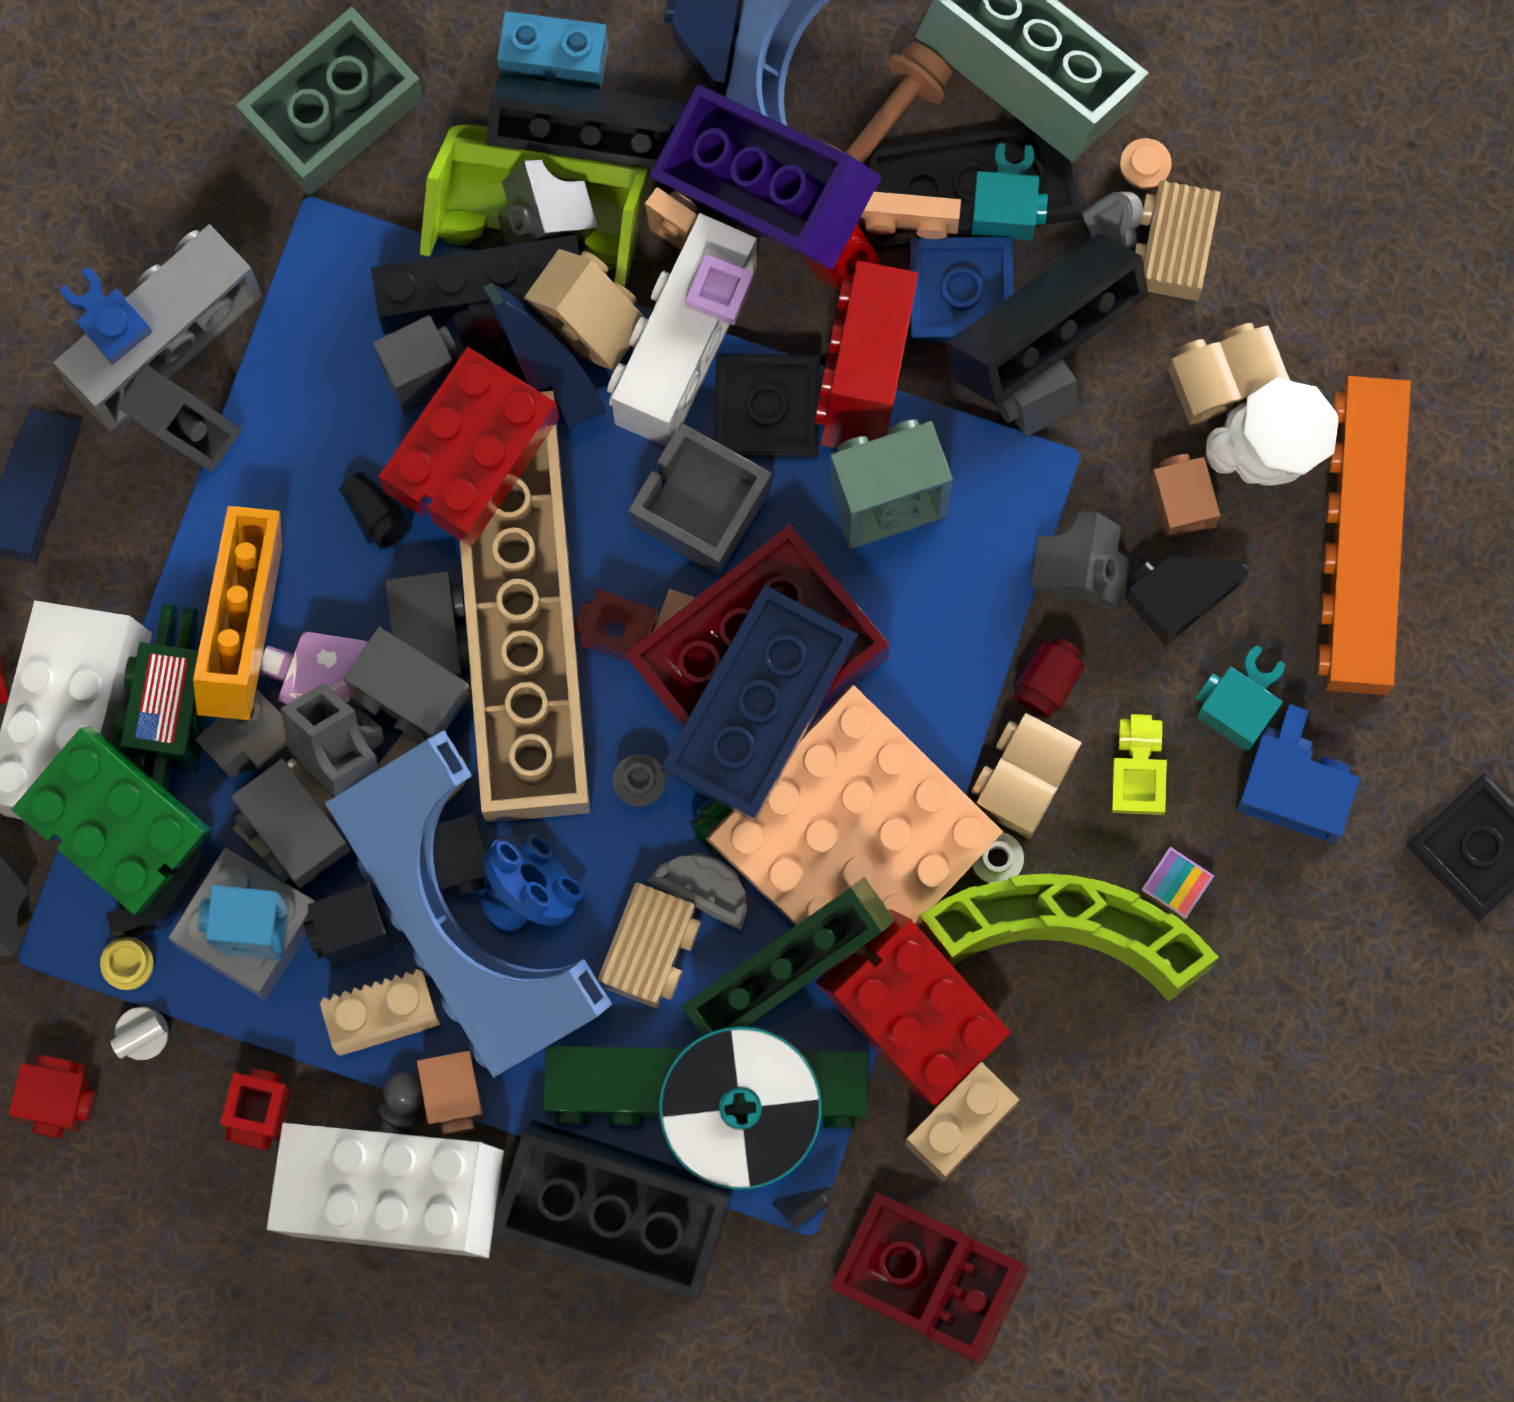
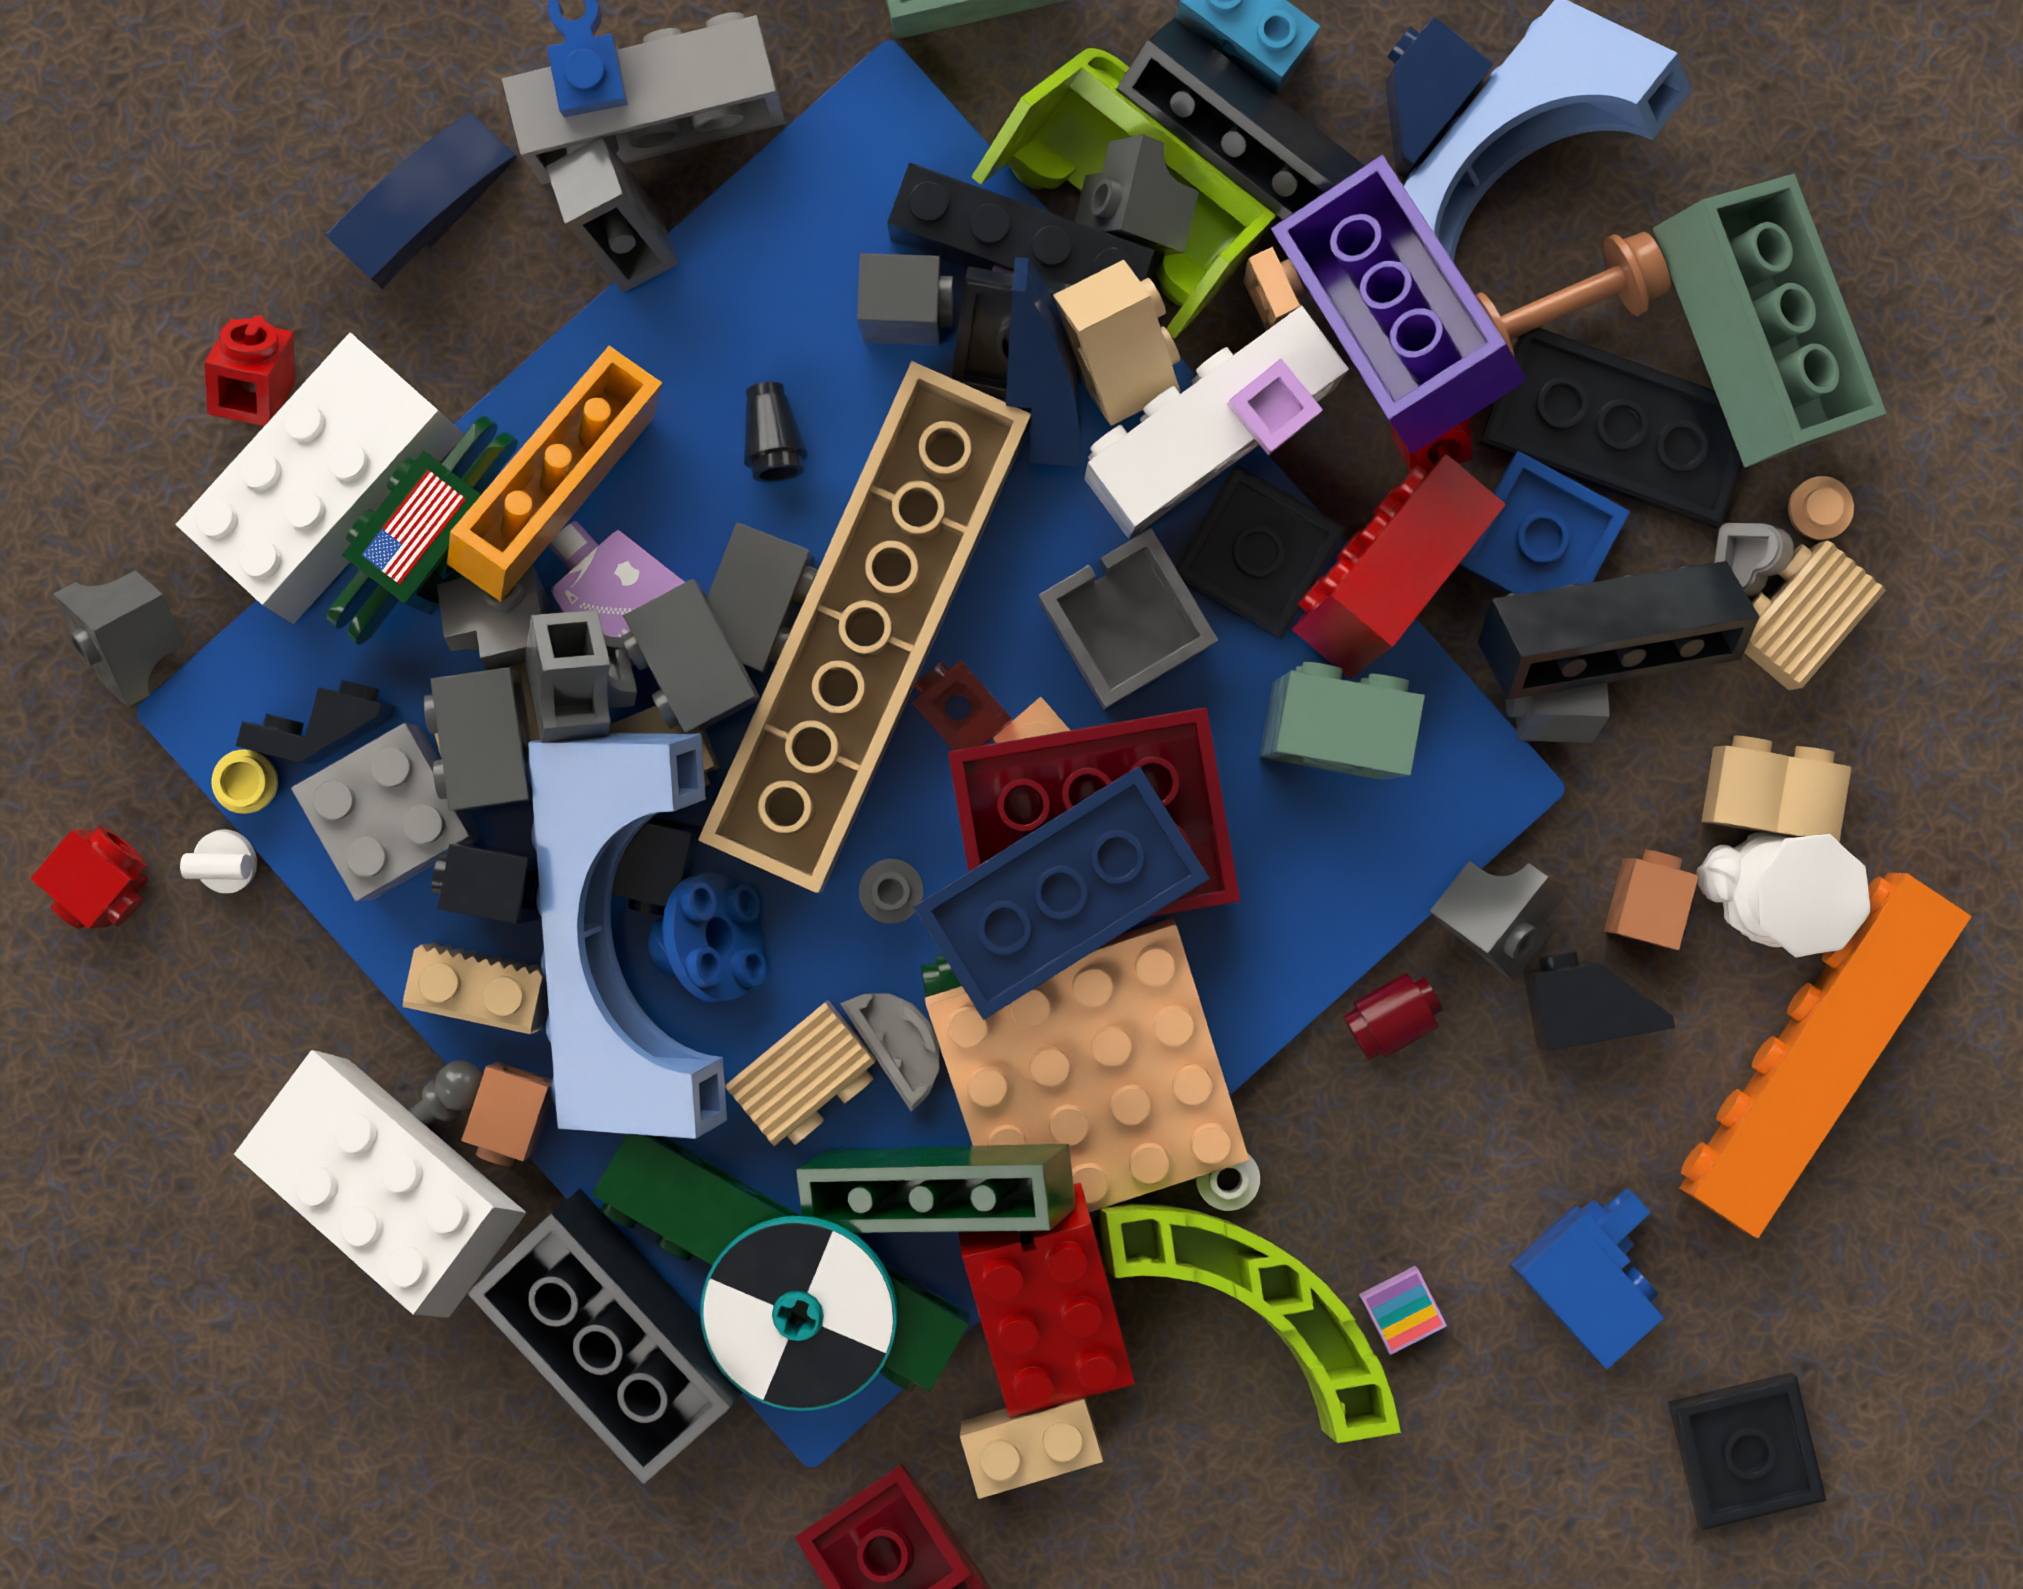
camera: 25 degrees right, 10 degrees up
(111, 819) = (289, 631): green piece -> none
(244, 922) = (364, 832): dark azure brick -> none
(255, 1109) = (294, 1014): red brick -> none
(469, 446) = (902, 430): red piece -> none
(803, 1206) = (814, 1440): clear smoke slope -> none
(926, 215) = (1551, 438): light nougat plate -> none
(1008, 200) = (1648, 470): teal brick -> none
(1026, 775) = (1309, 1108): tan brick -> none
(1139, 781) = (1424, 1182): neon yellow plate -> none
(1240, 703) = (1581, 1160): teal brick -> none

